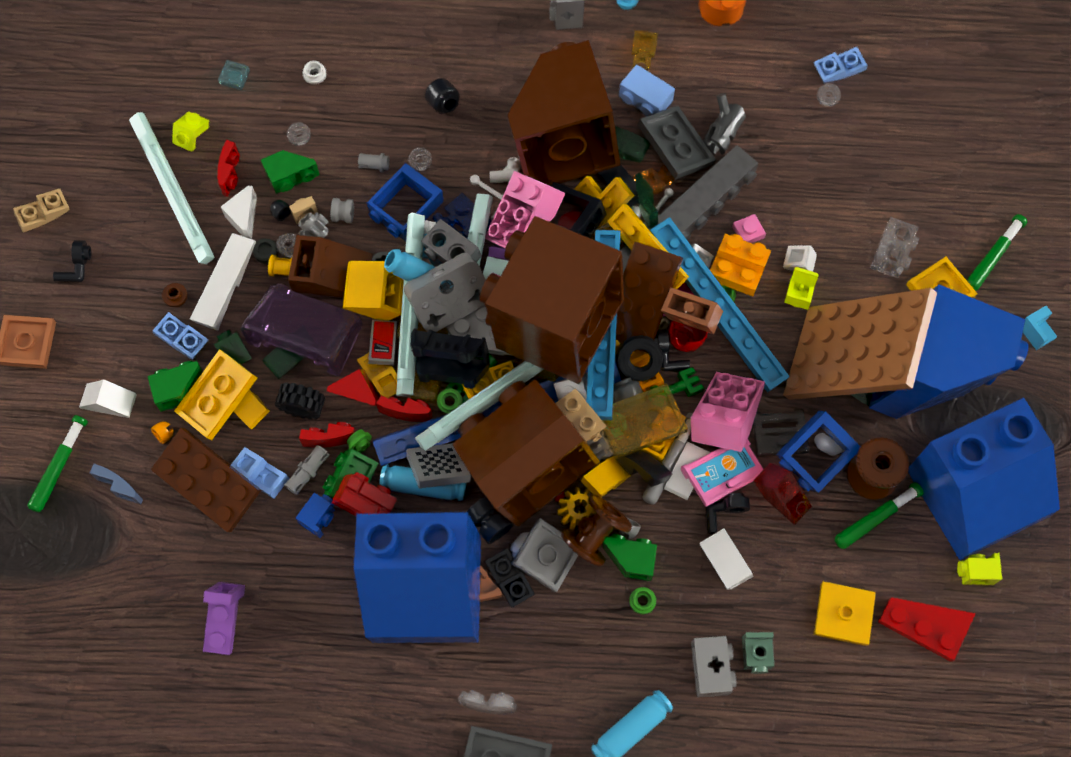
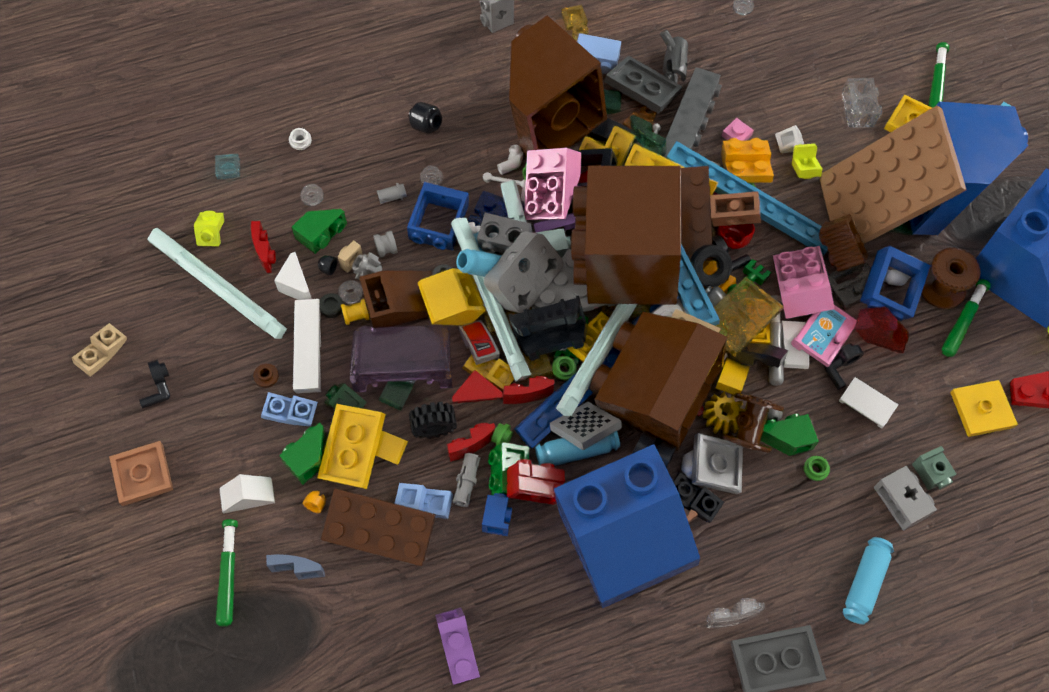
camera: 25 degrees left, 5 degrees down
(786, 389) = (843, 243): none -> reddish brown brick

